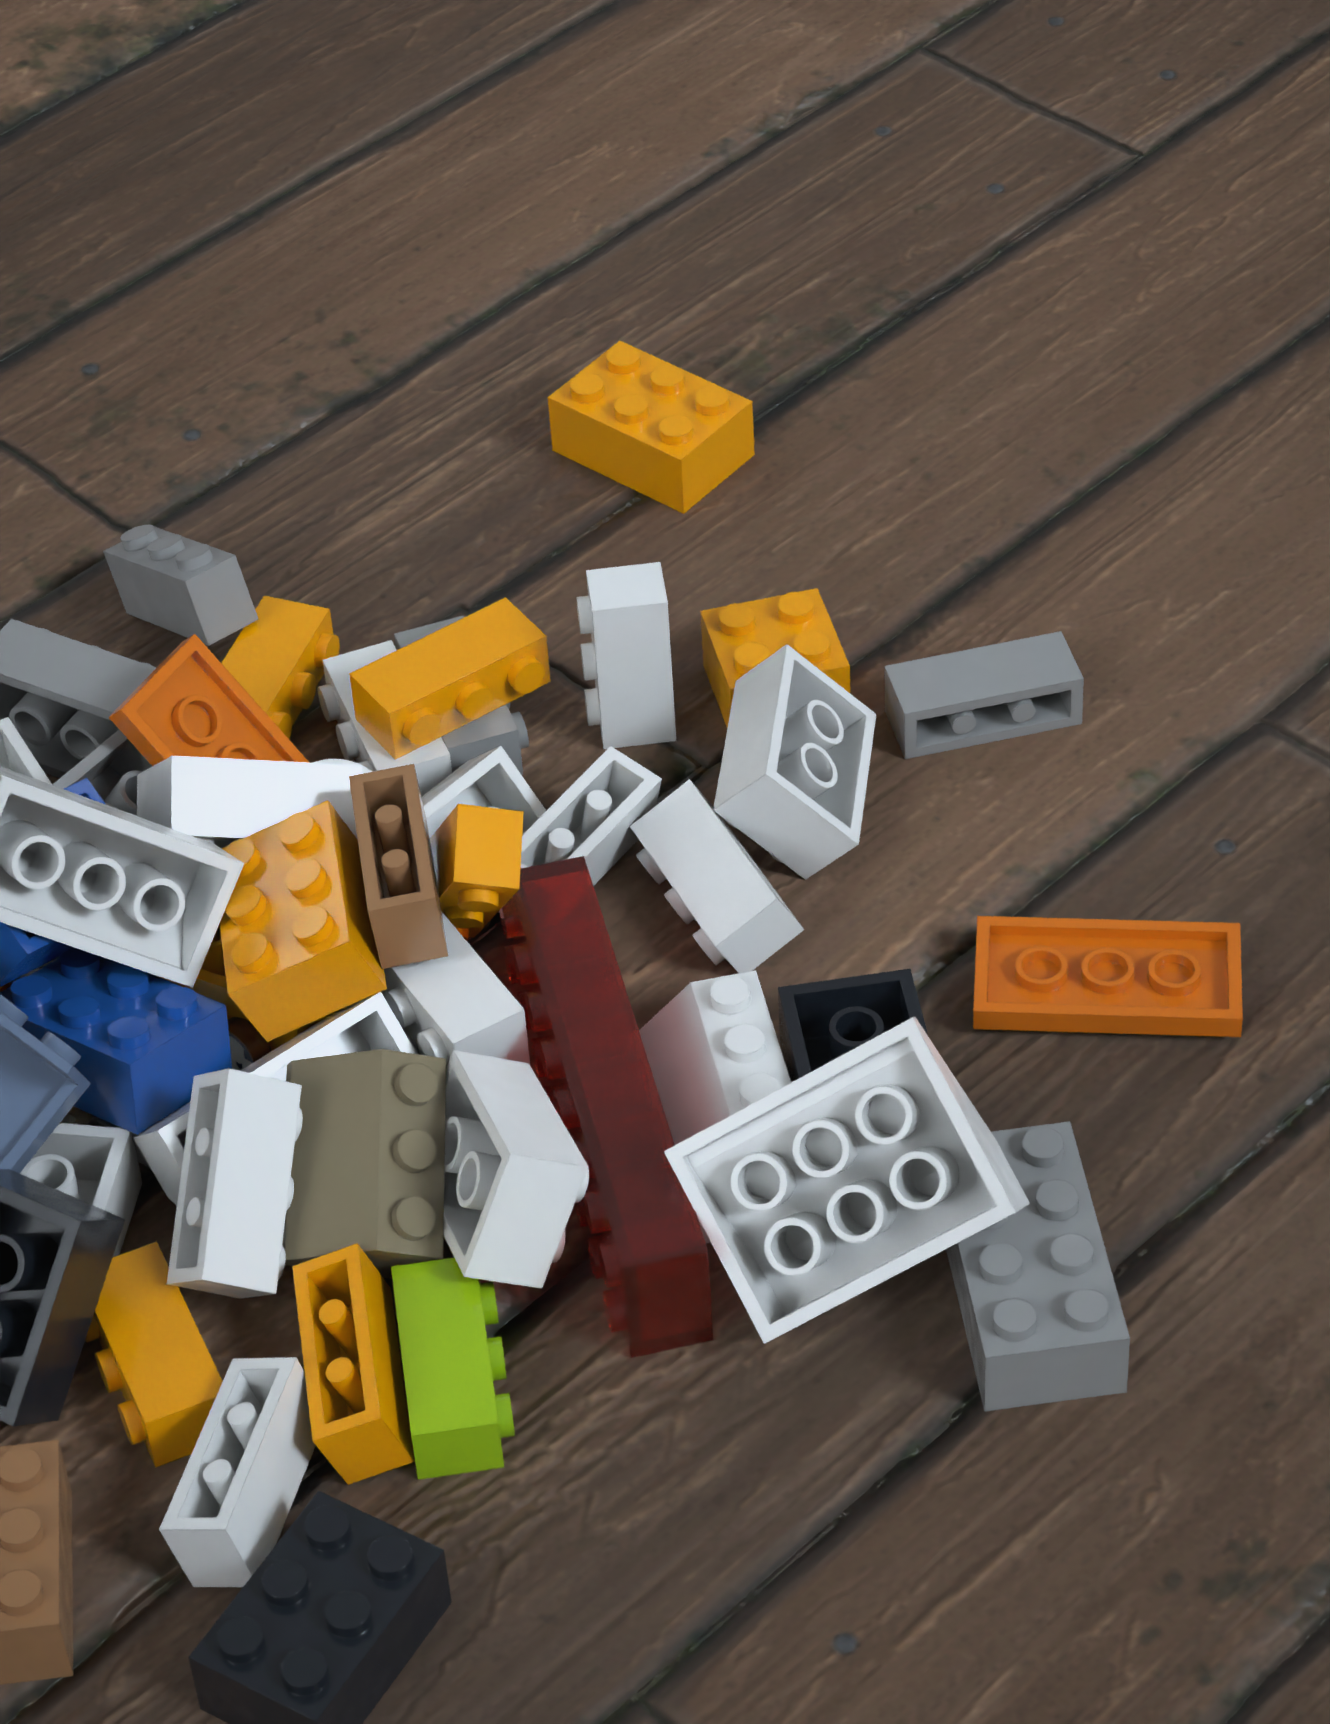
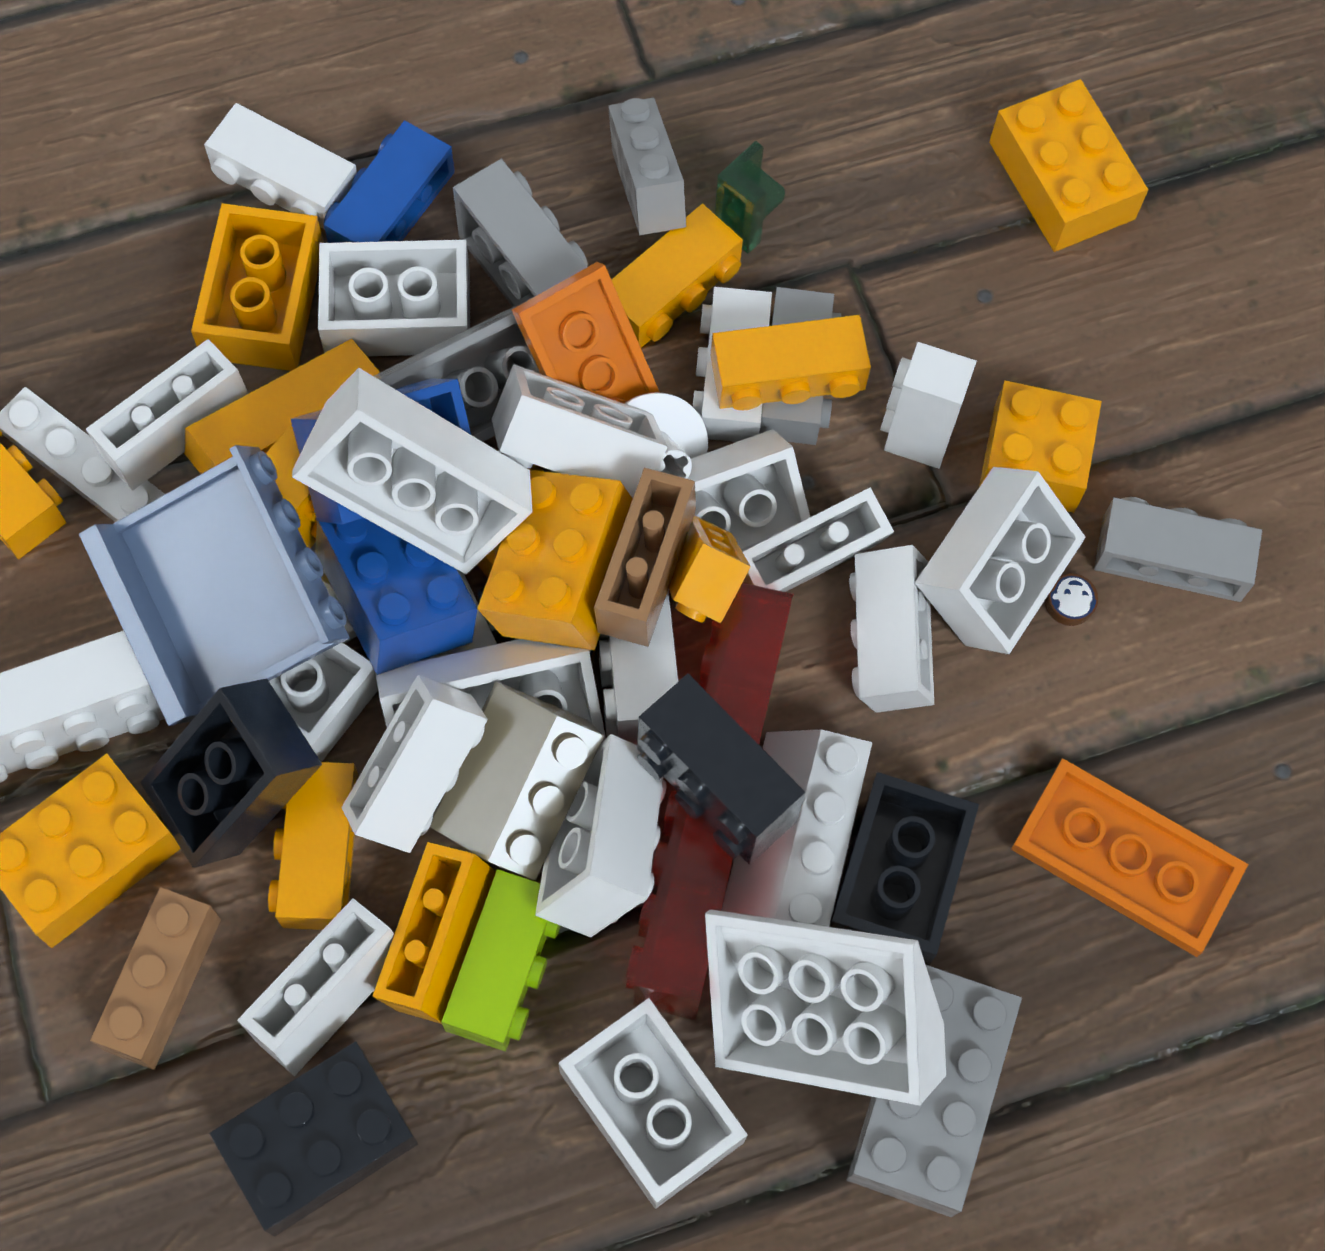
camera: 20 degrees right, 25 degrees up
(311, 566) = (747, 196): none -> clear green panel
(599, 1005) = (717, 770): none -> black brick
(711, 1410) = (652, 1103): none -> white brick
(897, 789) = (1072, 600): none -> tile

